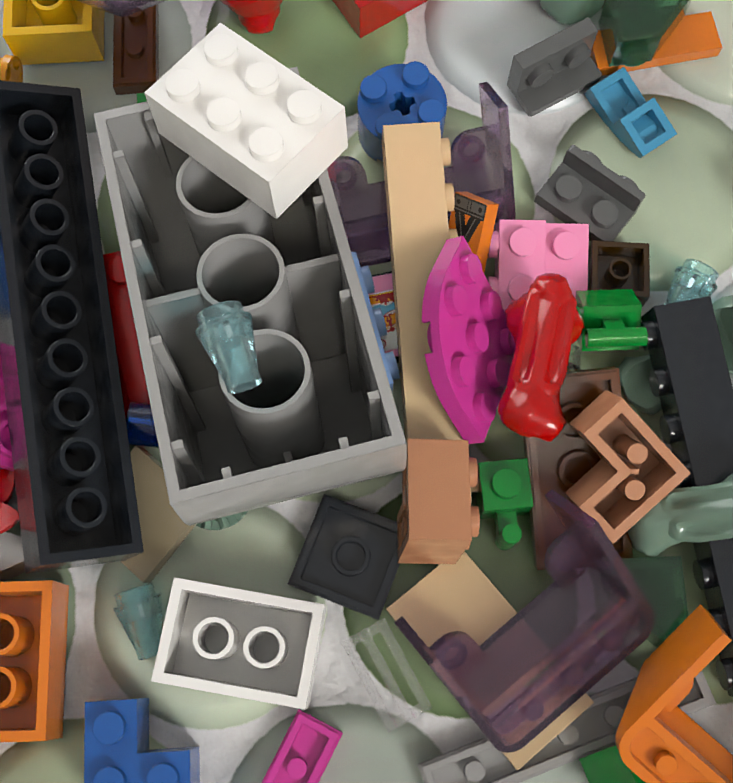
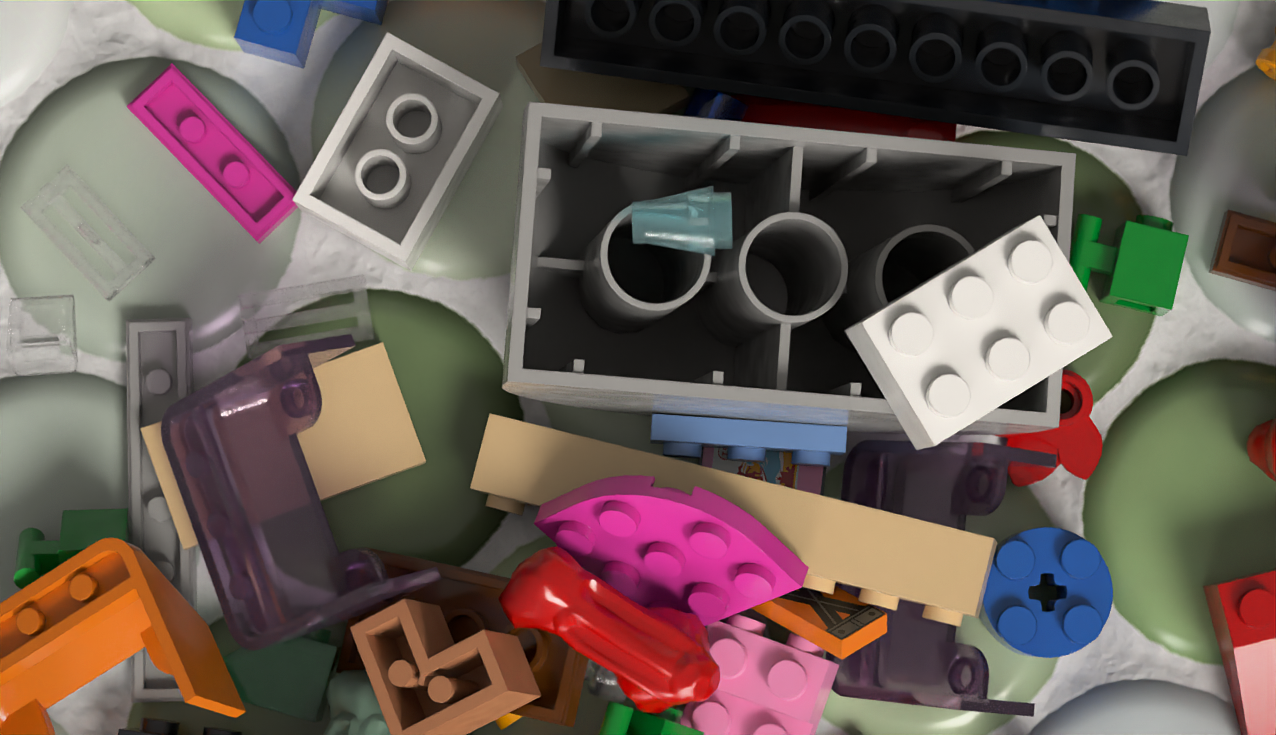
camera: 110 degrees right, 10 degrees up
(141, 618) = (475, 43): clear light blue cone -> none
(348, 557) = (454, 321): black tile -> none
(436, 502) = (481, 438): nougat brick -> none
(504, 496) = (468, 536): green brick -> none

